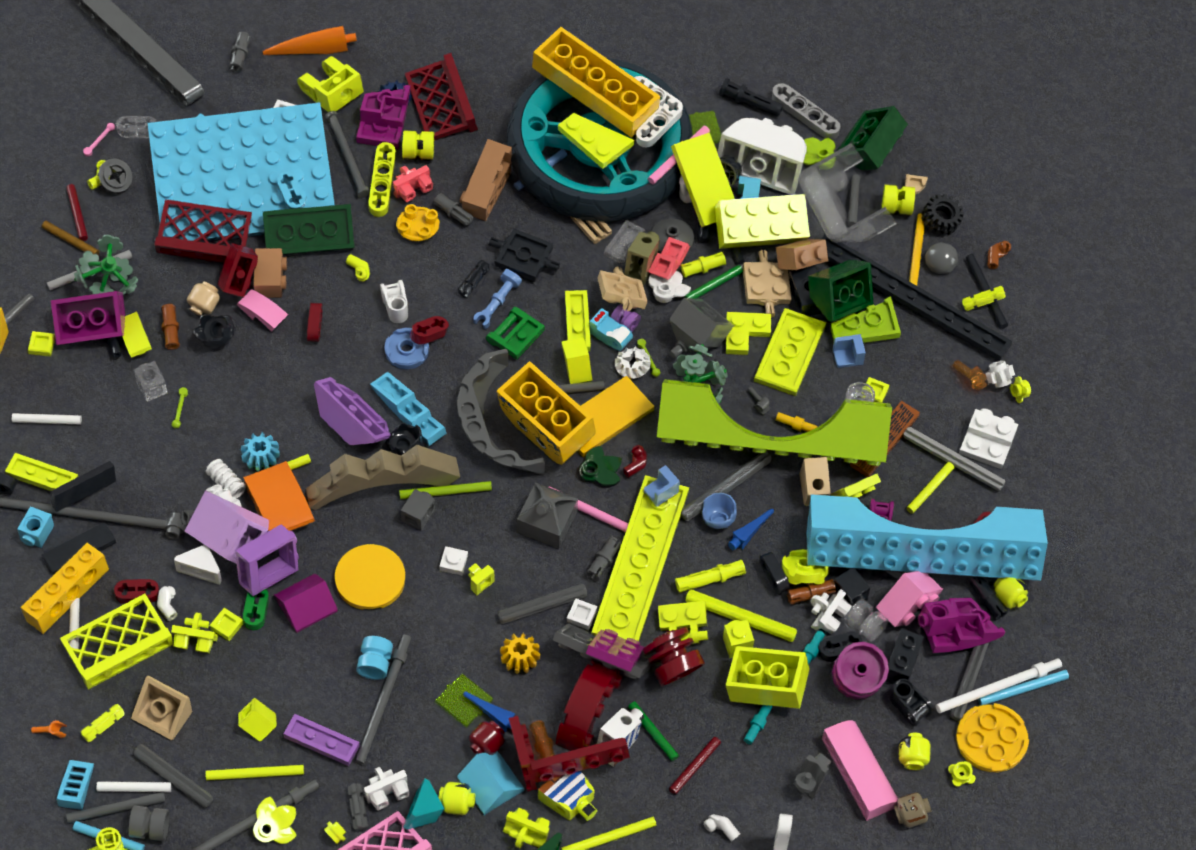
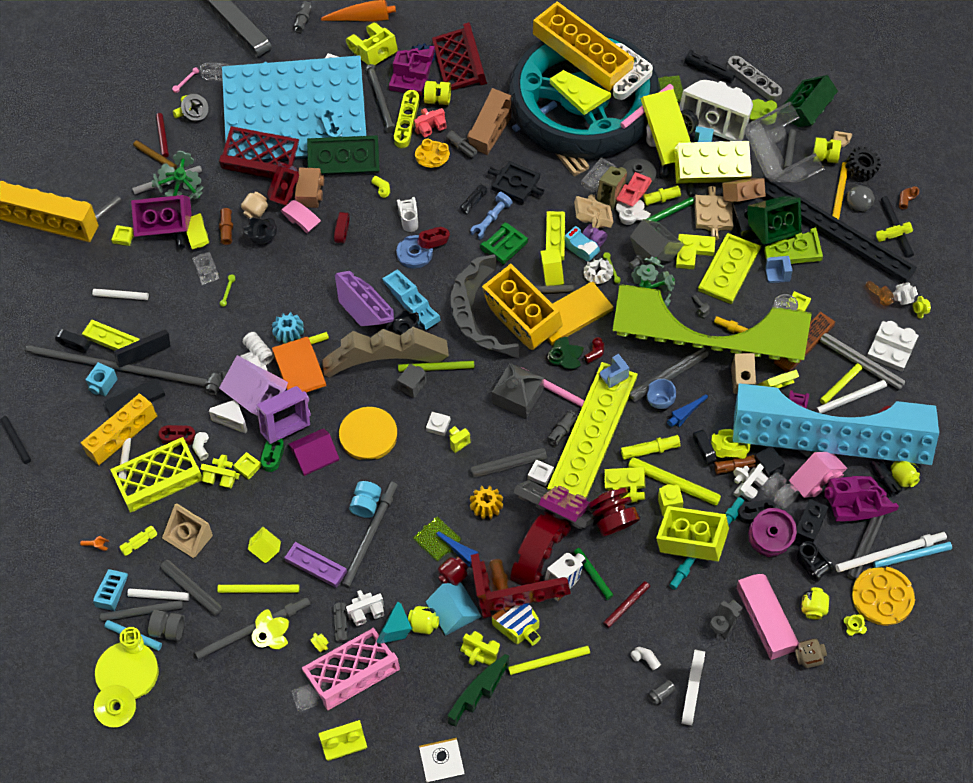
camera: 10 degrees right, 0 degrees up
(942, 503) = (851, 397): none -> white bar

